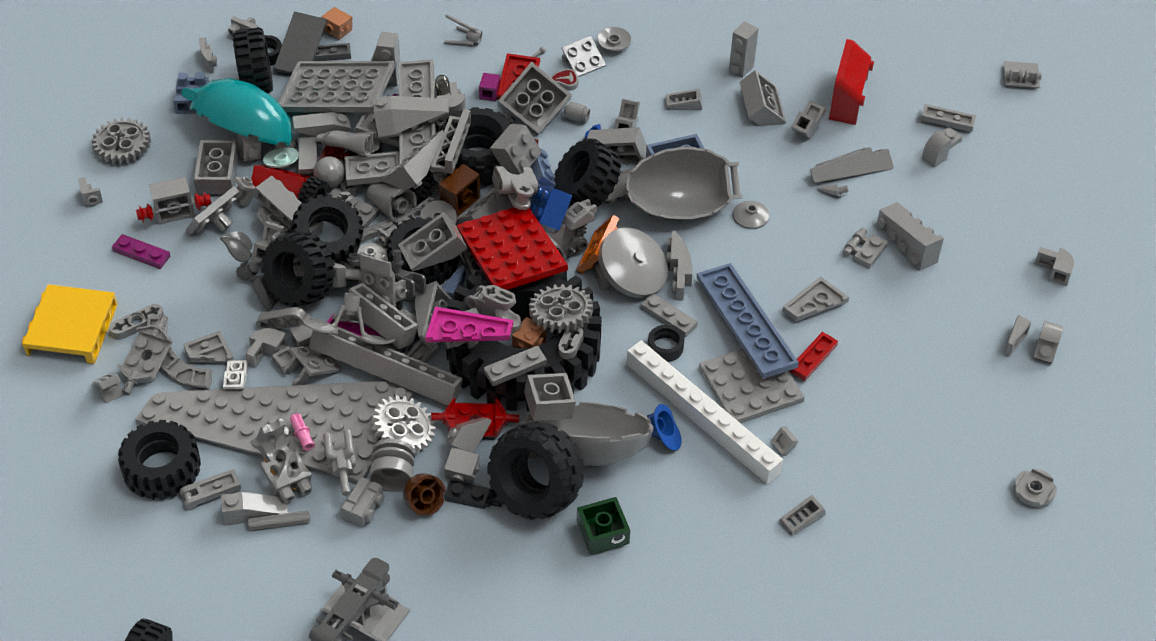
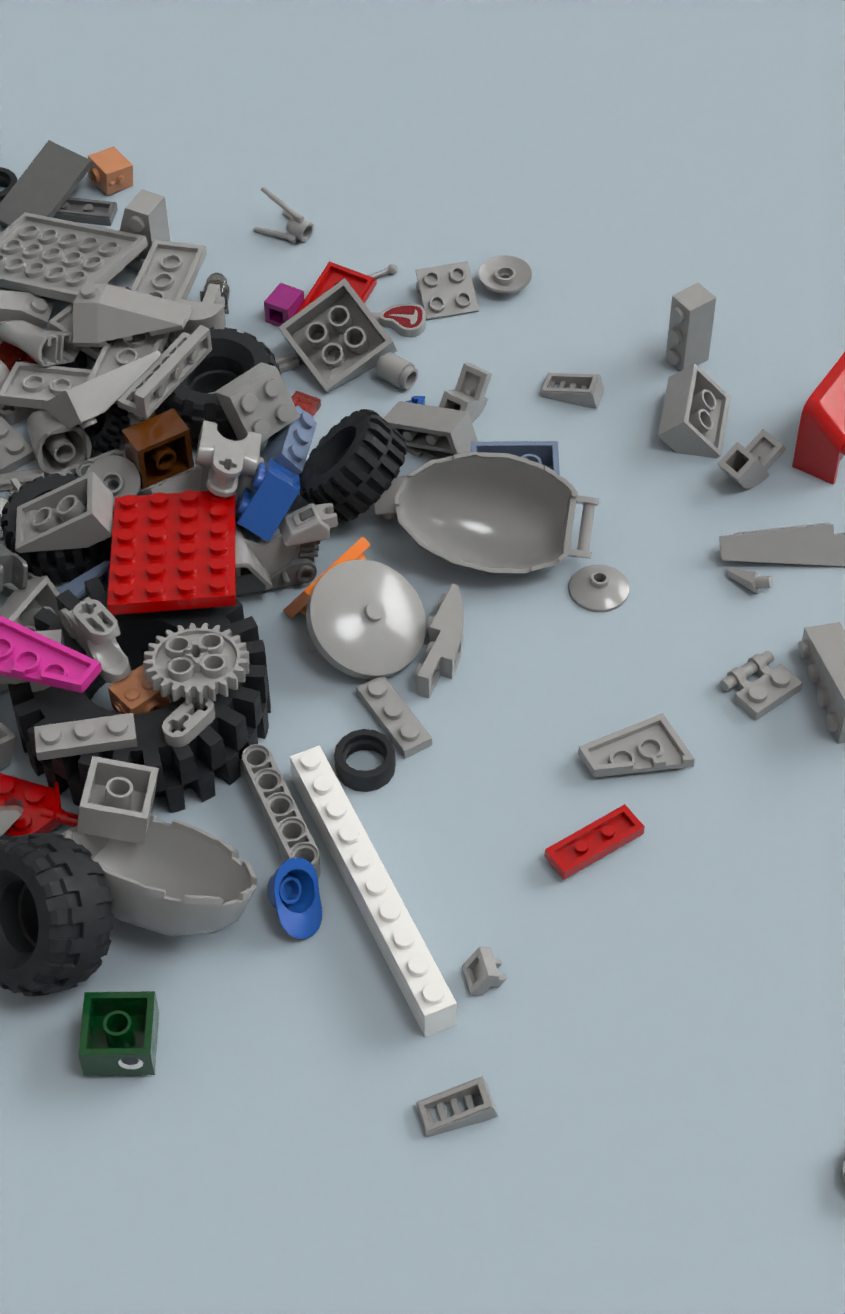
camera: 20 degrees right, 0 degrees up
(629, 381) = (273, 798): none -> light grey beam
(744, 391) = (475, 859): light grey plate -> none
(747, 321) = (507, 758): sand blue plate -> none

